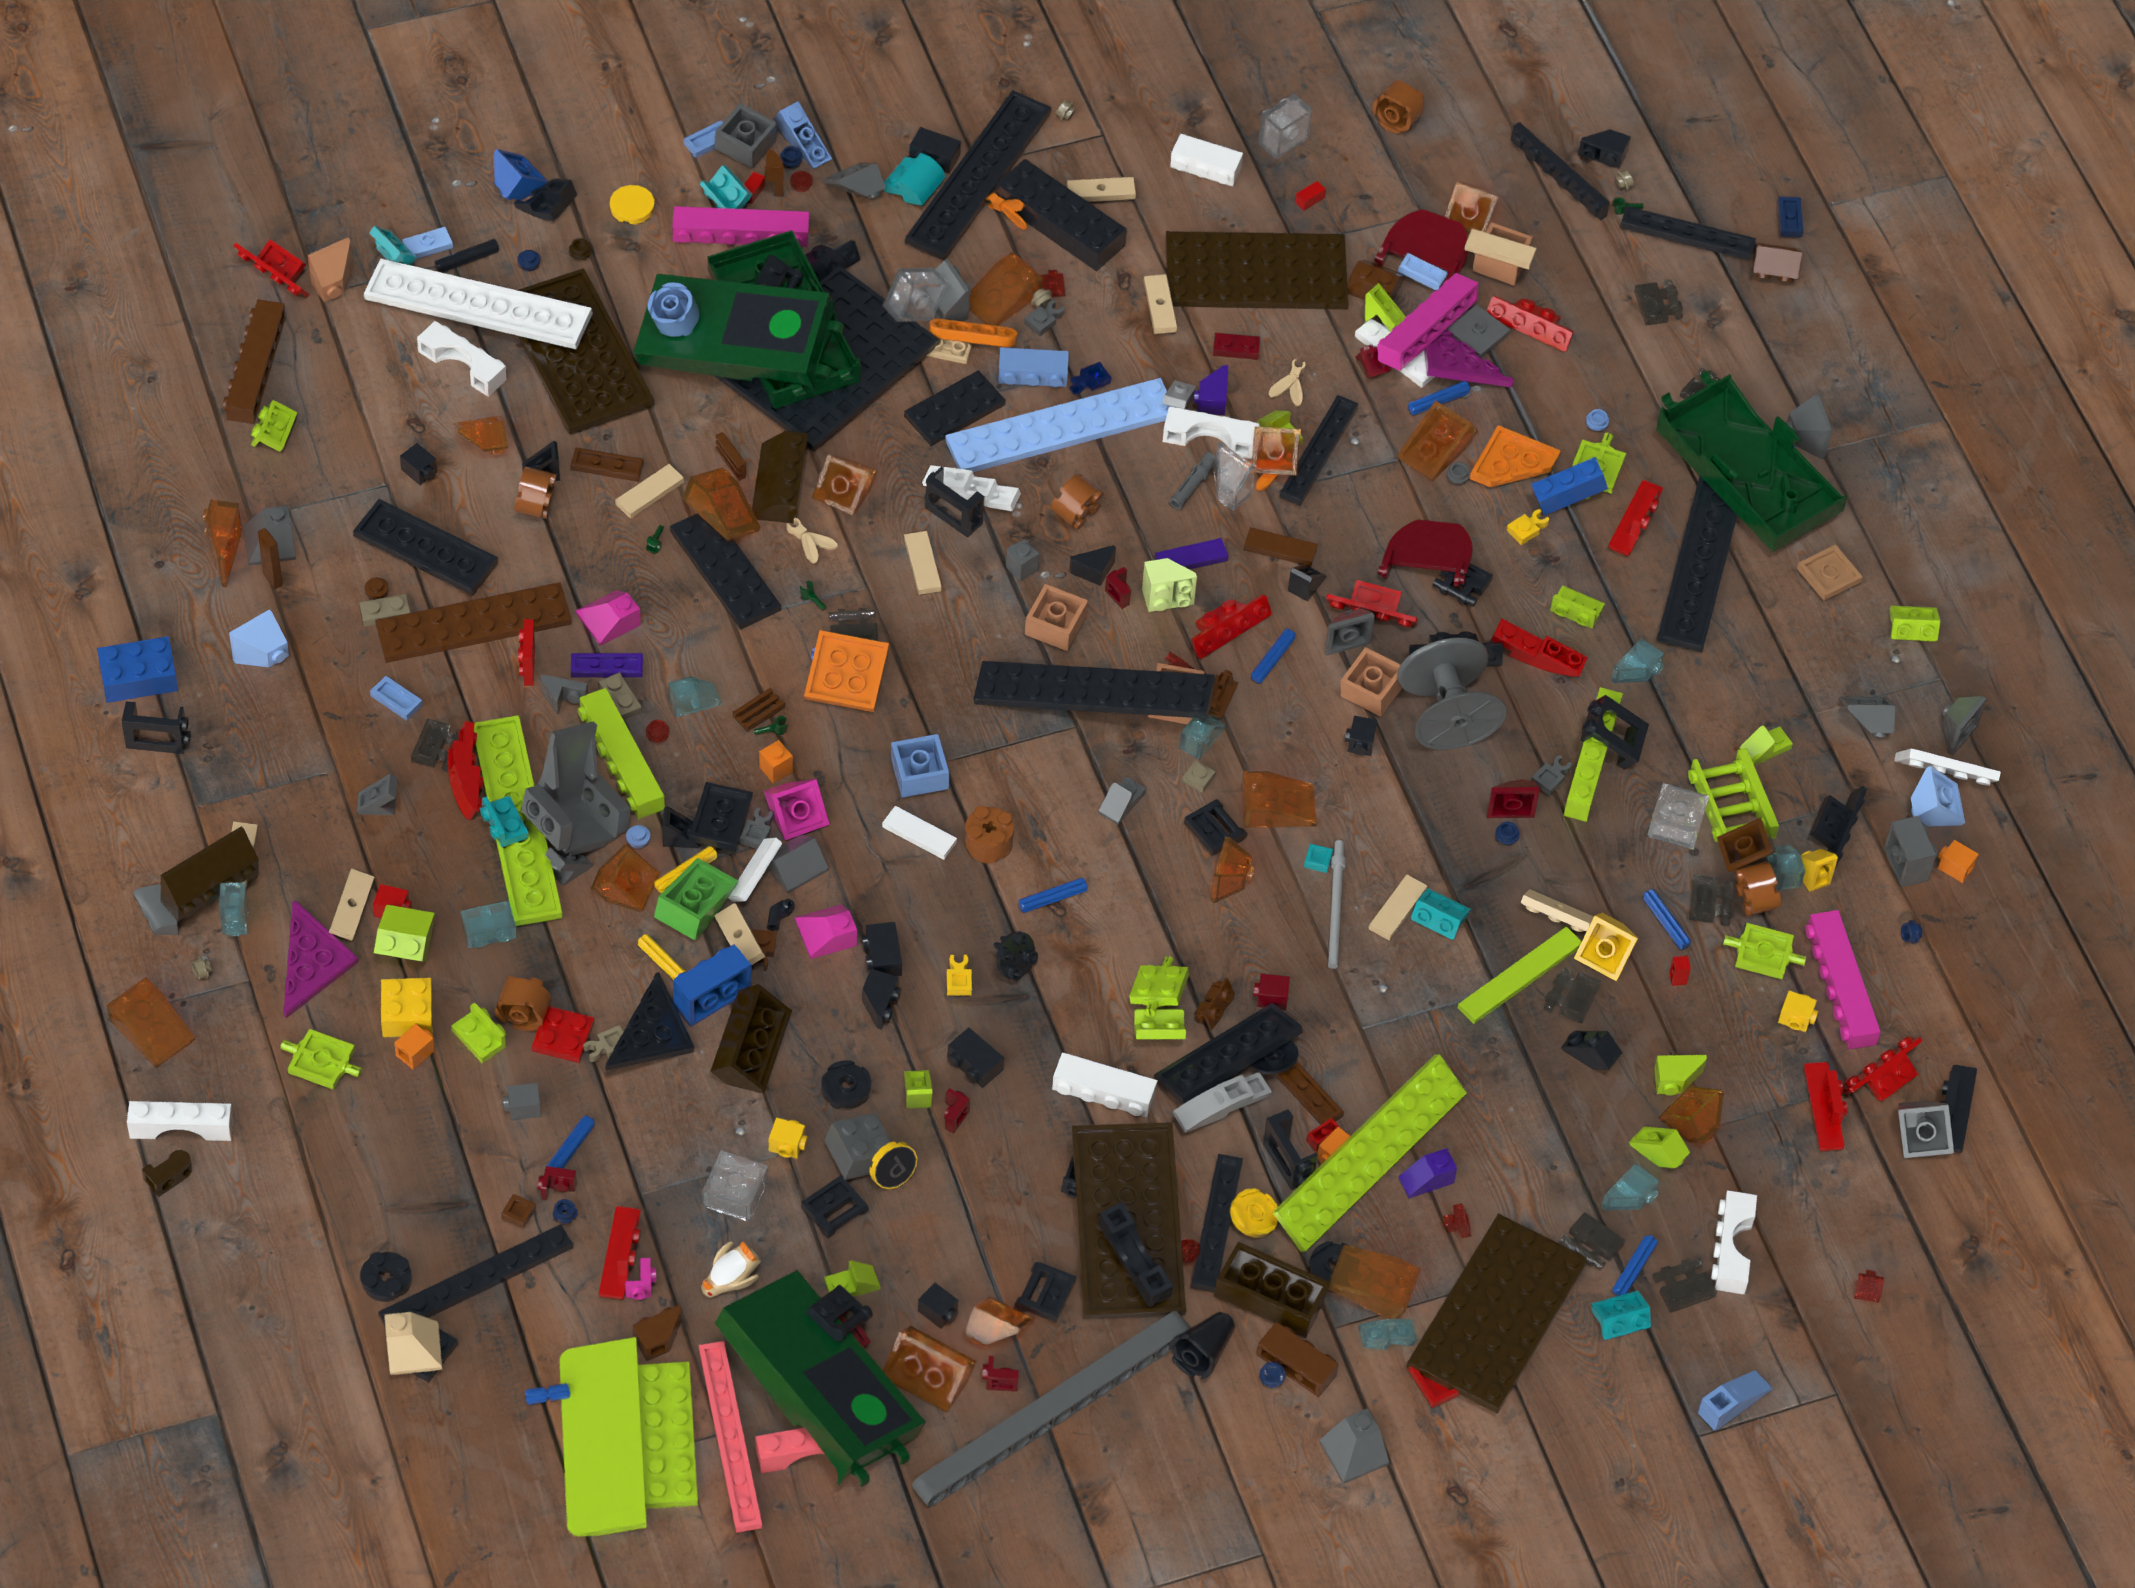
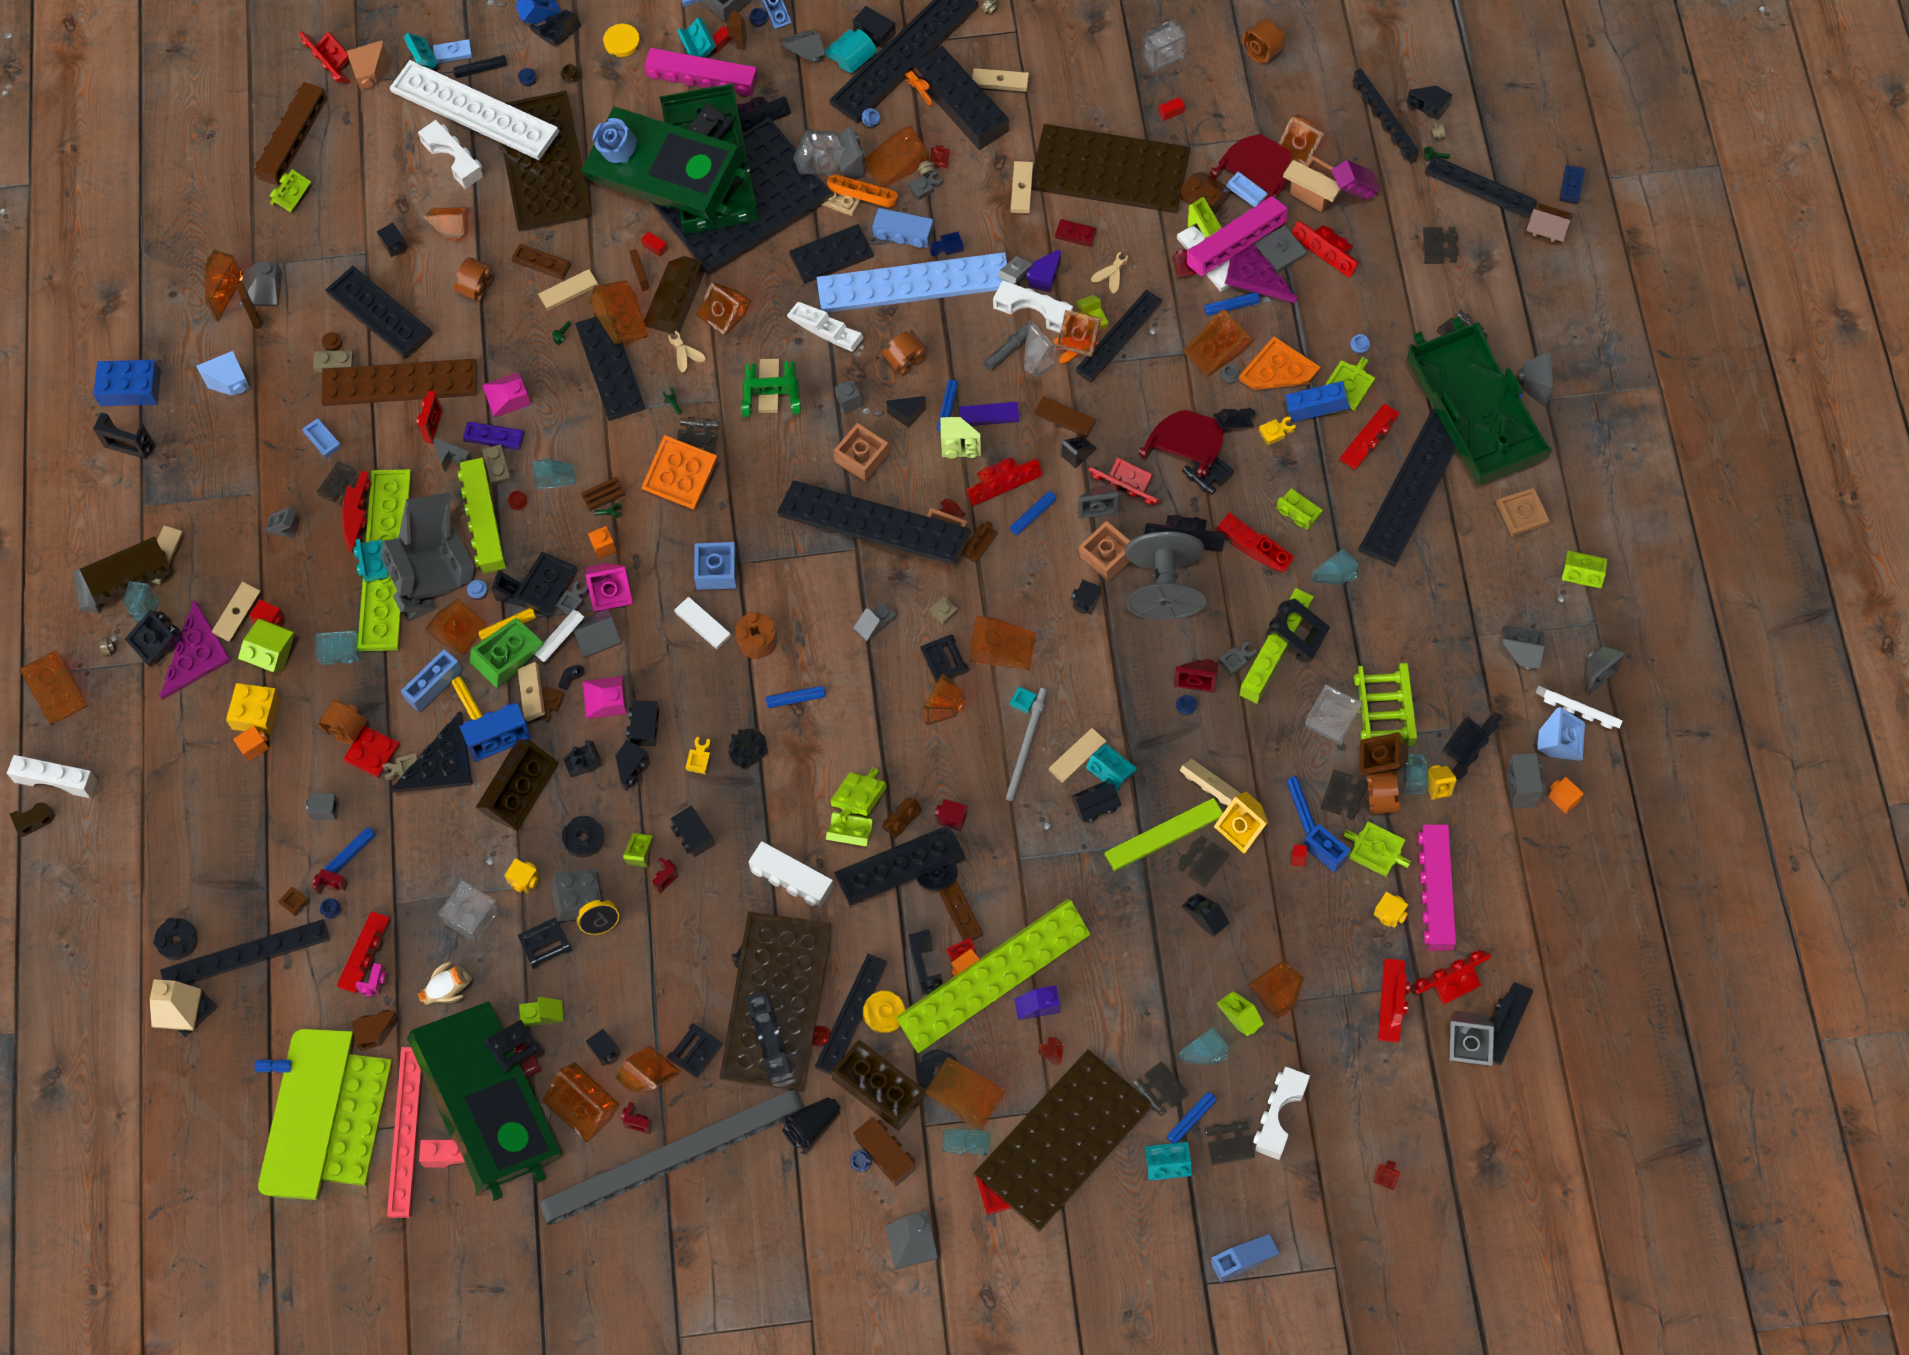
camera: 20 degrees right, 10 degrees up
(258, 947) = (153, 636): none -> black plate
(321, 1059) = (176, 741): lime plate -> none
(480, 1033) = (305, 741): lime bracket -> none
(545, 459) = (491, 254): black slope -> none
(616, 942) = (431, 680): none -> medium blue brick
(739, 425) = (654, 244): none -> red piece
(801, 181) = (761, 38): clear red plate -> none
(821, 1001) = (582, 759): none -> black hand
(942, 557) = (769, 386): none -> green connector
(959, 251) = (870, 117): none -> medium blue plate
(971, 509) = (815, 349): black panel -> none
(1118, 588) = (919, 432): dark red bracket -> none
(1140, 552) = (948, 401): none -> blue axle
(1200, 735) = (951, 577): clear light blue slope -> none
(1206, 160) = (1093, 66): white brick -> none
(1221, 1100) = (882, 906): light grey slope -> none
(1435, 949) = (1096, 800): none -> black brick
(1479, 518) = (1235, 419): none -> black hinge
(1549, 241) = (1356, 180): none -> magenta brick
(1677, 1072) = (1273, 948): lime slope -> none
(1710, 957) = (1327, 848): none -> blue brick
(1766, 744) = (1427, 660): lime slope -> none
(1911, 932) = (1508, 853): dark blue plate -> none

